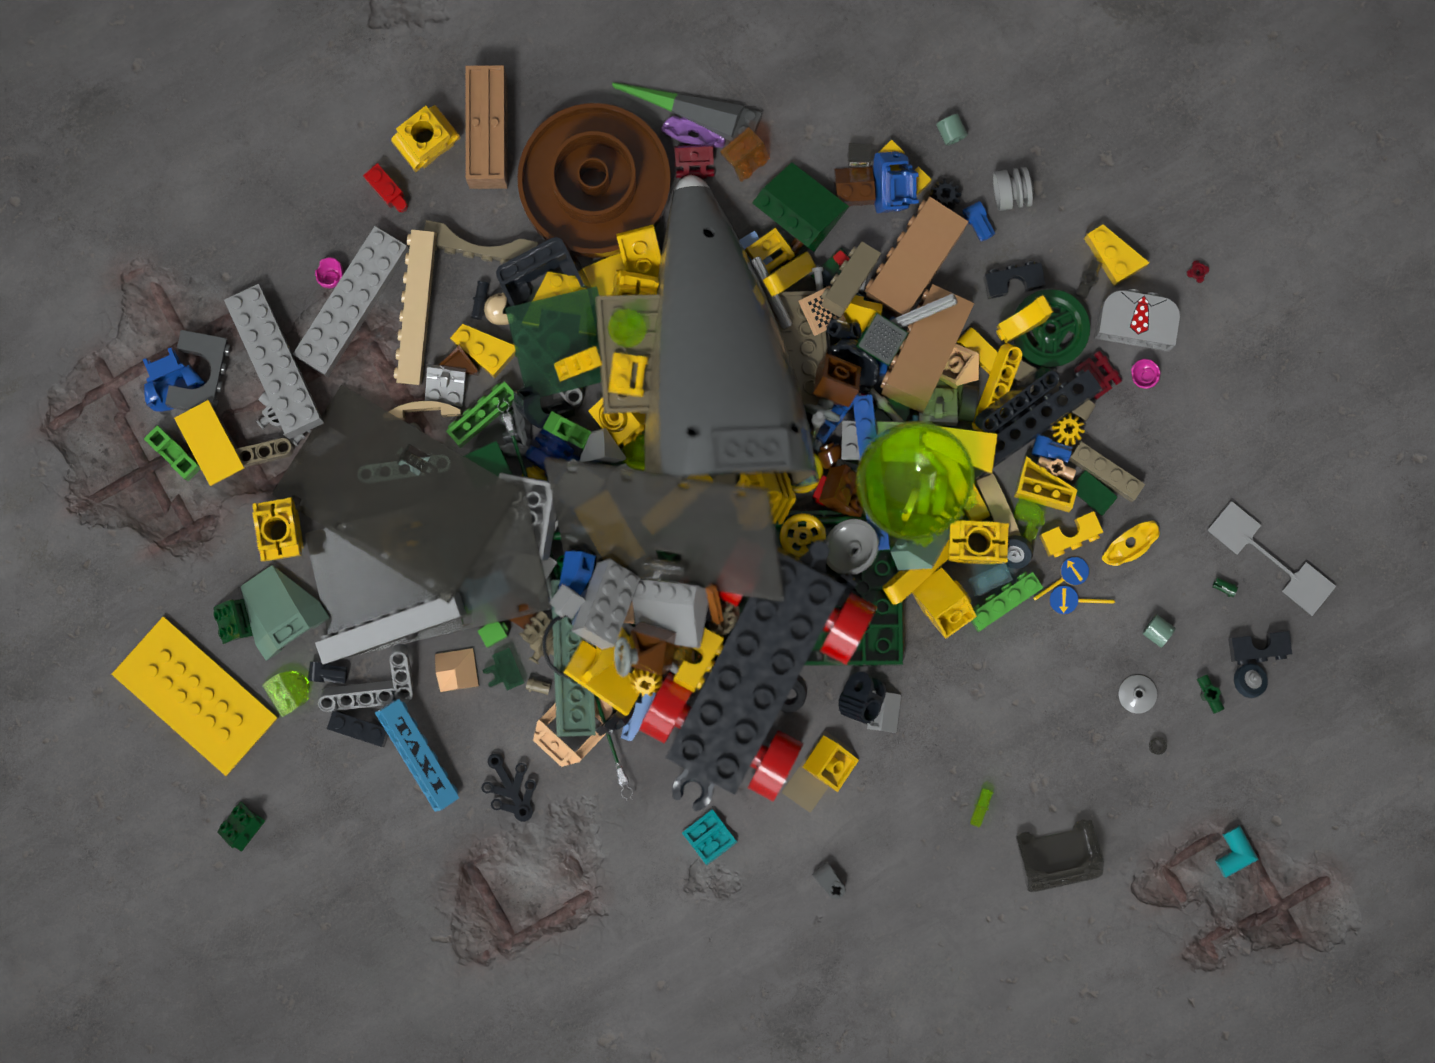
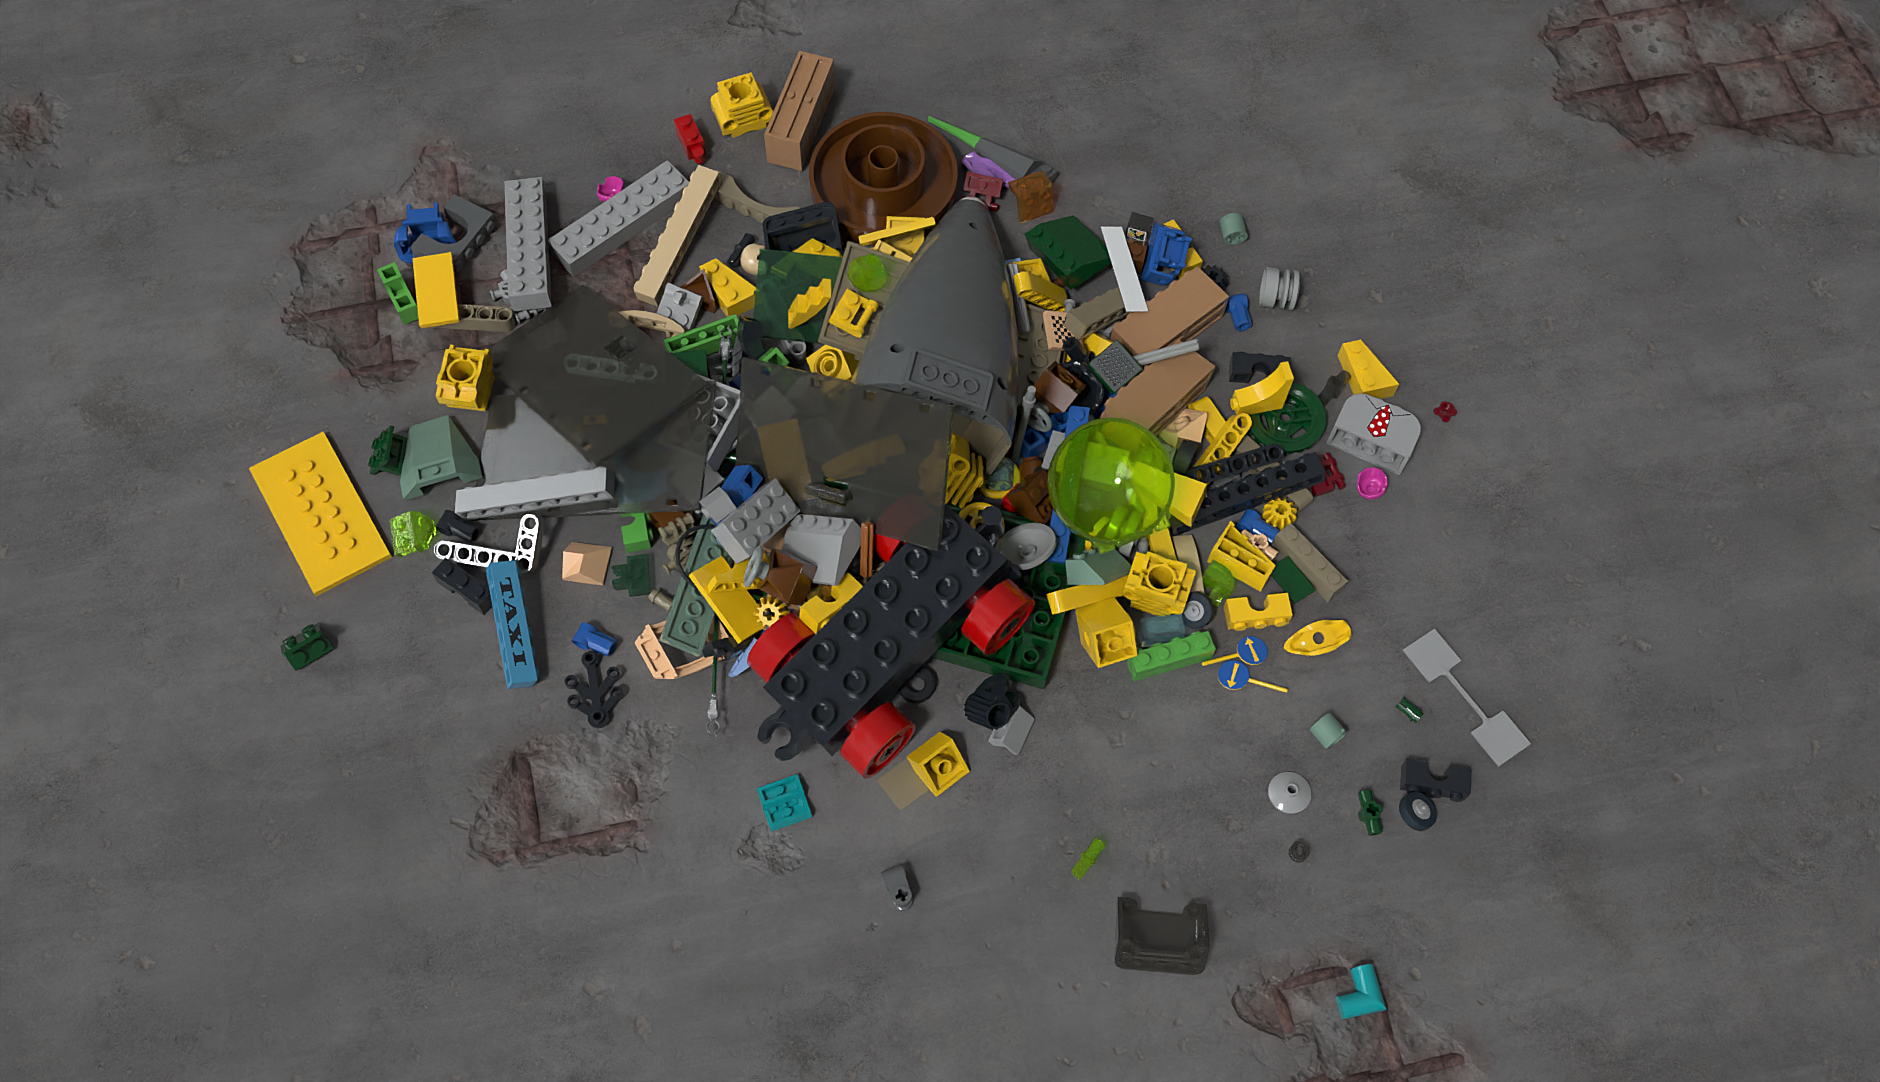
camera: 15 degrees right, 20 degrees down
(488, 742) = (589, 638): none -> blue piece
(634, 254) = (897, 231): none -> yellow tile
(860, 219) = (1124, 269): none -> white sticker

